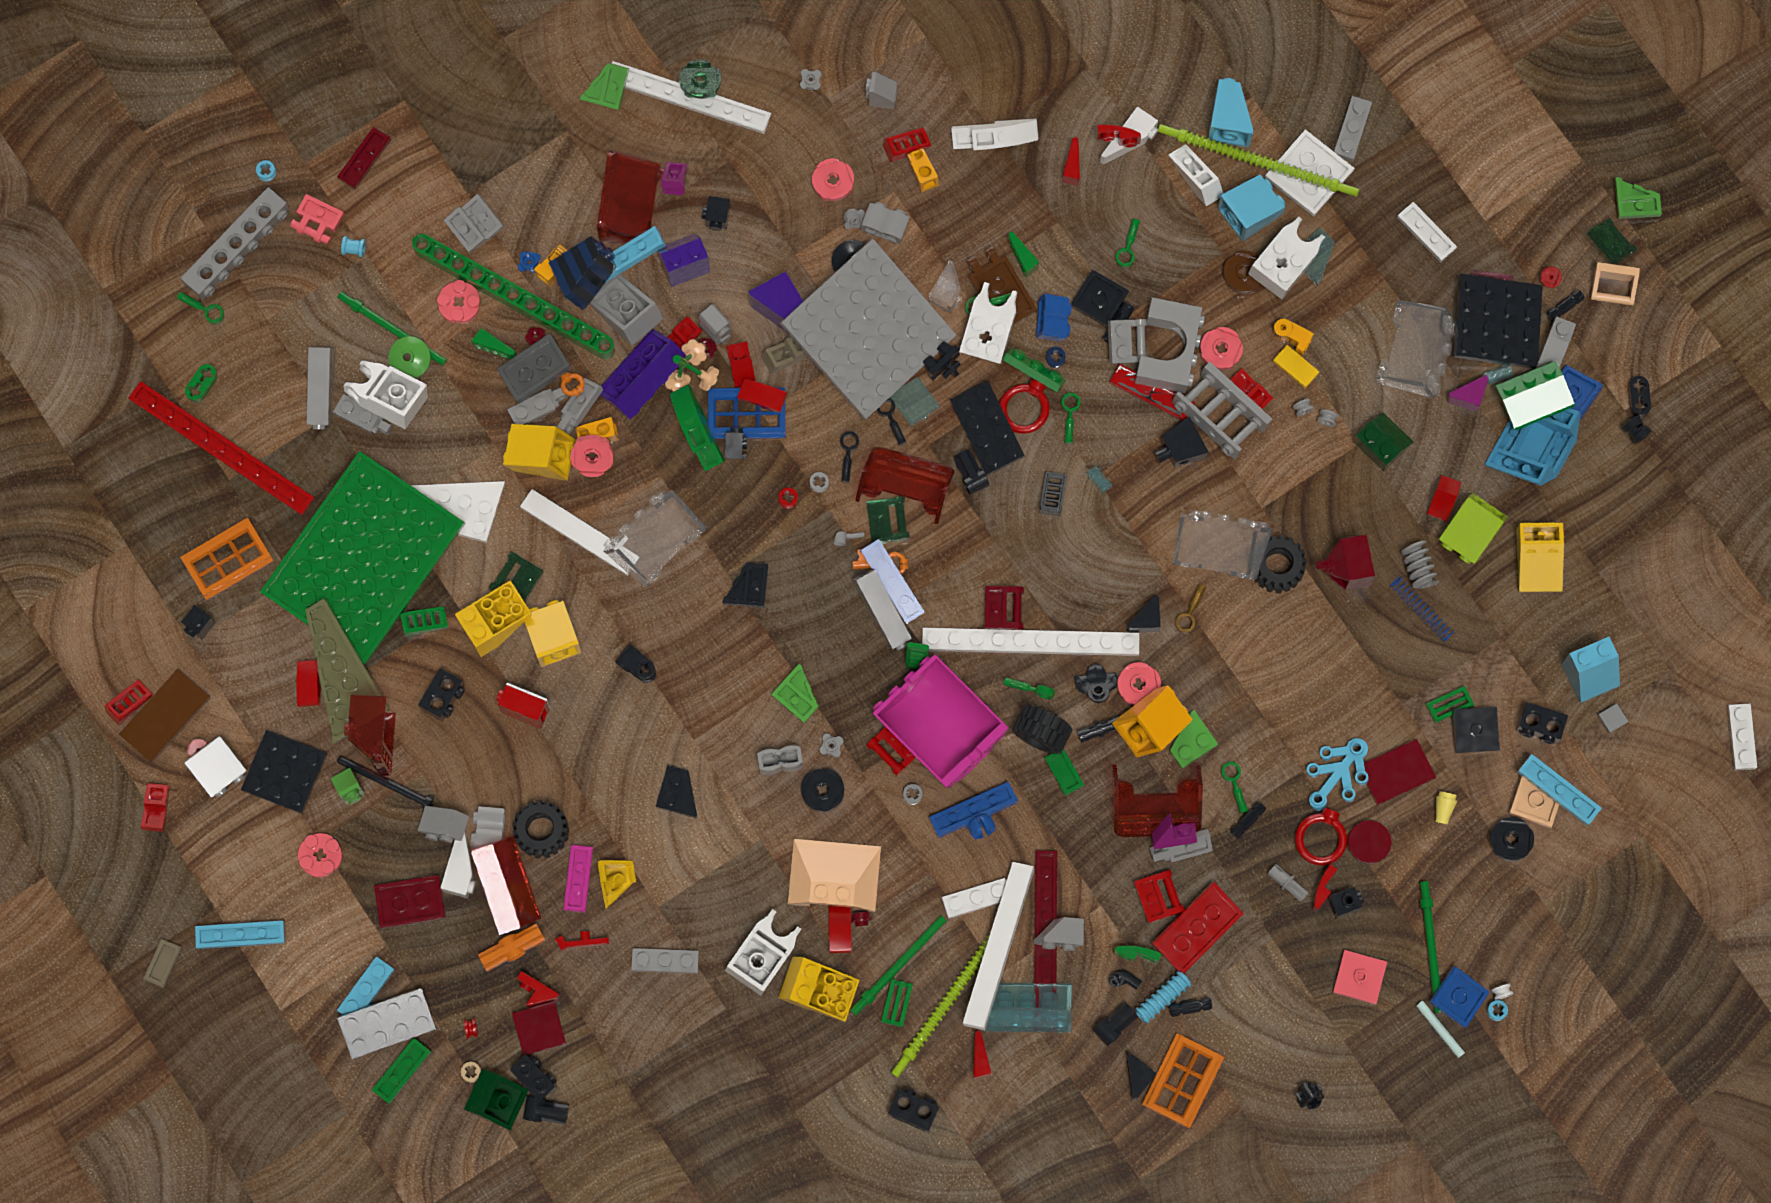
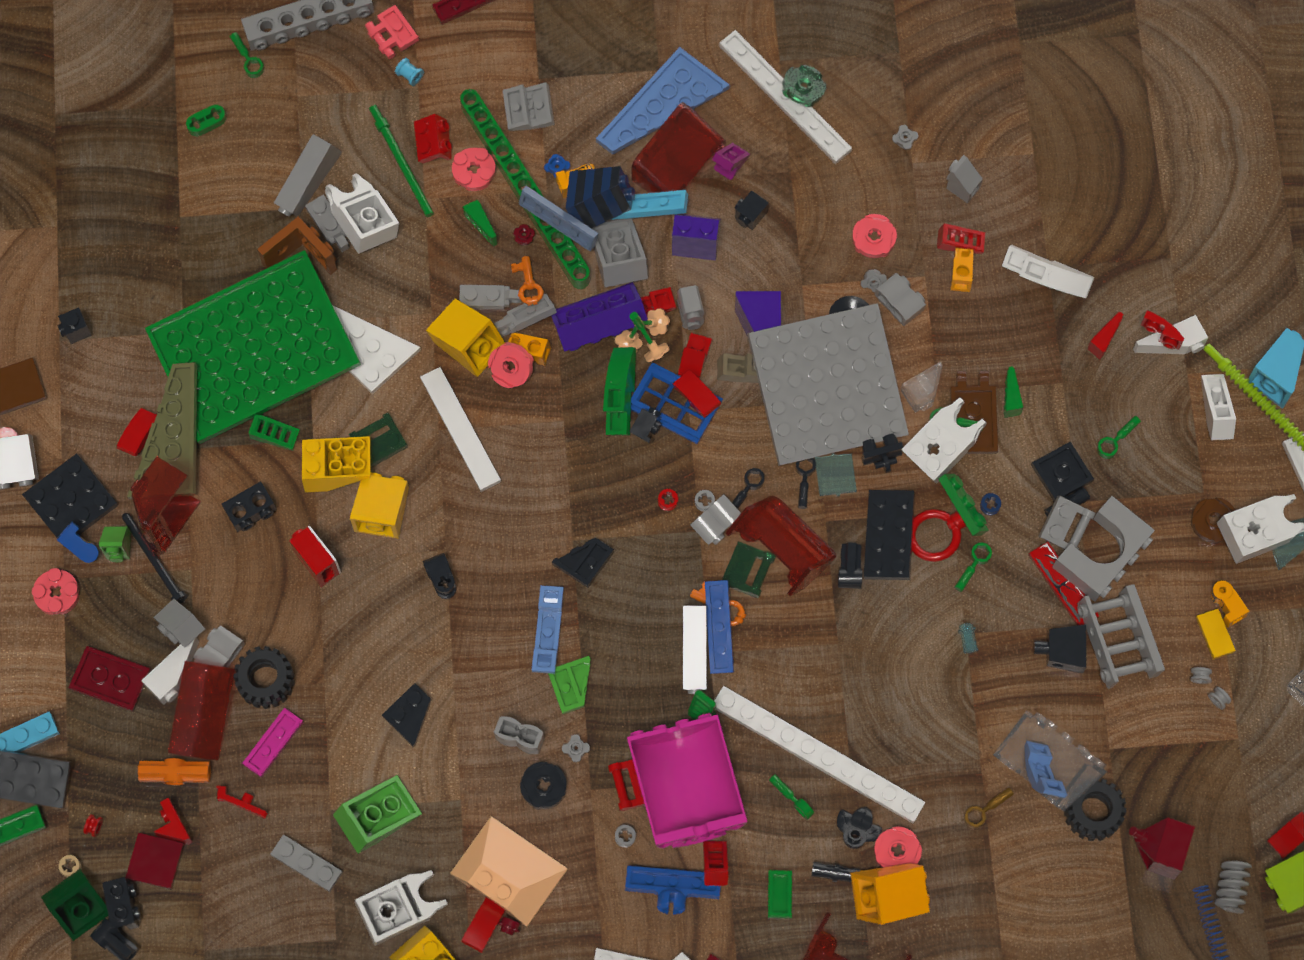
camera: 30 degrees right, 5 degrees down
(215, 543) = (133, 265): orange piece -> none
(221, 448) = (189, 186): red plate -> none
(324, 807) = (83, 549): none -> blue leg
(355, 439) = (290, 239): none -> dark orange bracket
(408, 295) = (432, 138): none -> red bracket
(419, 354) = (409, 197): bright green dish -> none
(534, 368) = (504, 261): dark grey plate -> none
(560, 308) = (558, 218): none -> sand blue tile
(589, 138) = (677, 81): none -> medium blue wing
(608, 87) = (717, 49): bright green wing -> none
(615, 878) = (304, 760): yellow slope -> none
(653, 537) = (523, 468): clear windscreen -> none
(700, 889) = (376, 814): none -> bright green slope
(711, 347) = (671, 331): dark red plate -> none
(752, 660) = (547, 629): none -> medium blue slope
(839, 493) = (716, 520): none -> light grey brick
(840, 537) = (696, 561): light grey hand -> none
(997, 607) = (803, 705): dark red plate -> none
(999, 776) = (715, 863): none -> red slope
(1042, 729) = (779, 842): black tyre -> none
(1047, 509) = (908, 643): black slope -> none
(1053, 317) = (1008, 466): blue brick -> none
(1147, 619) = (939, 793): black slope -> none
(1192, 742) = (918, 934): bright green wing -> none
(1218, 558) = (1039, 772): none -> medium blue slope
(1232, 344) = (1154, 566): coral plate -> none
(1251, 206) = (1253, 462): medium azure slope -> none
(1252, 389) = (1161, 633): red slope -> none
(1382, 441) = (1261, 748): dark green slope -> none

